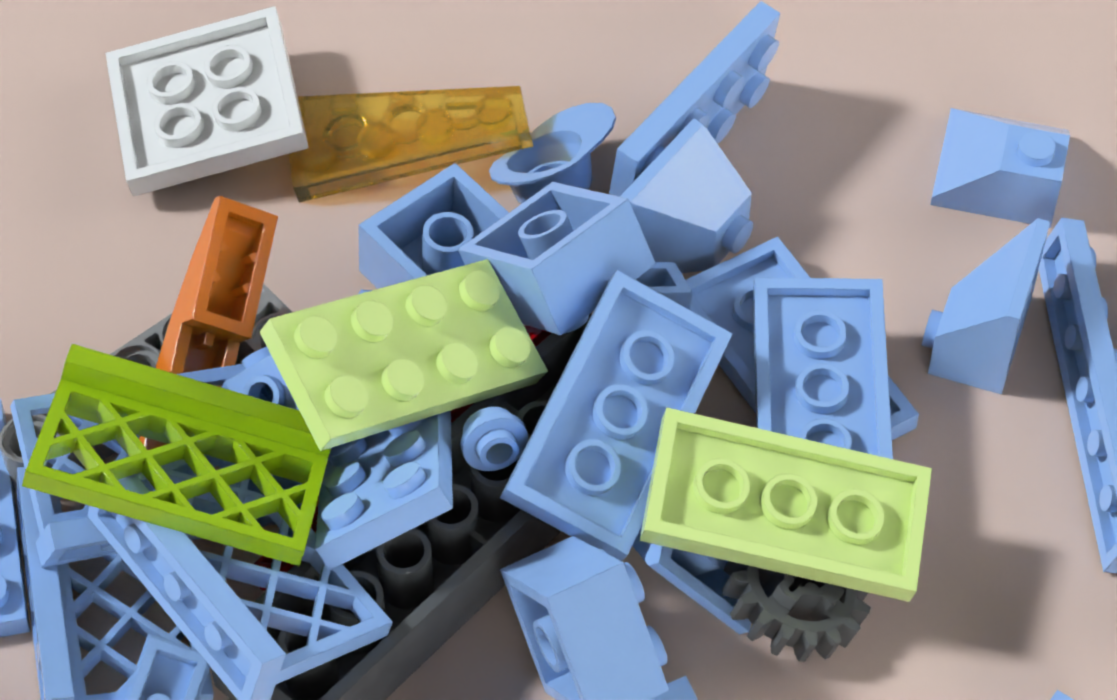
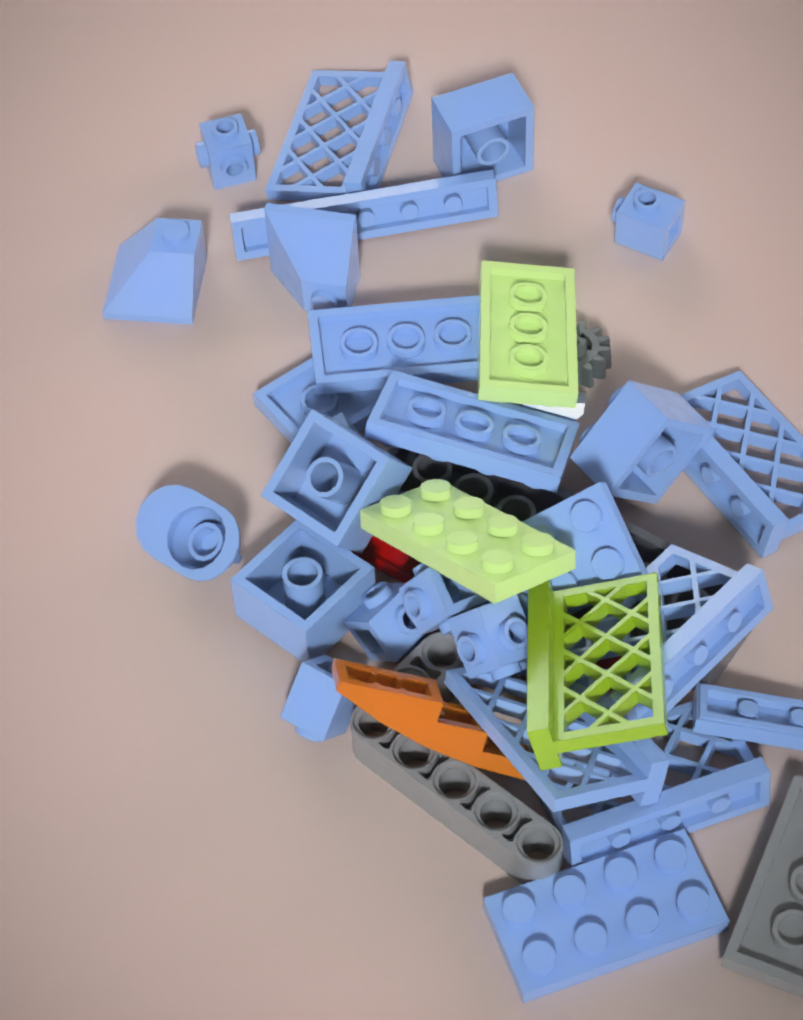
camera: 95 degrees left, 0 degrees up
(205, 101) = (147, 803): white plate -> none
(302, 261) = (315, 704): none -> light blue brick
(402, 134) = (172, 668): clear yellow wing -> none
(493, 439) = (510, 498): light blue plate -> none
(692, 202) = (235, 444): light blue slope -> none
(710, 94) = (151, 440): light blue plate -> none

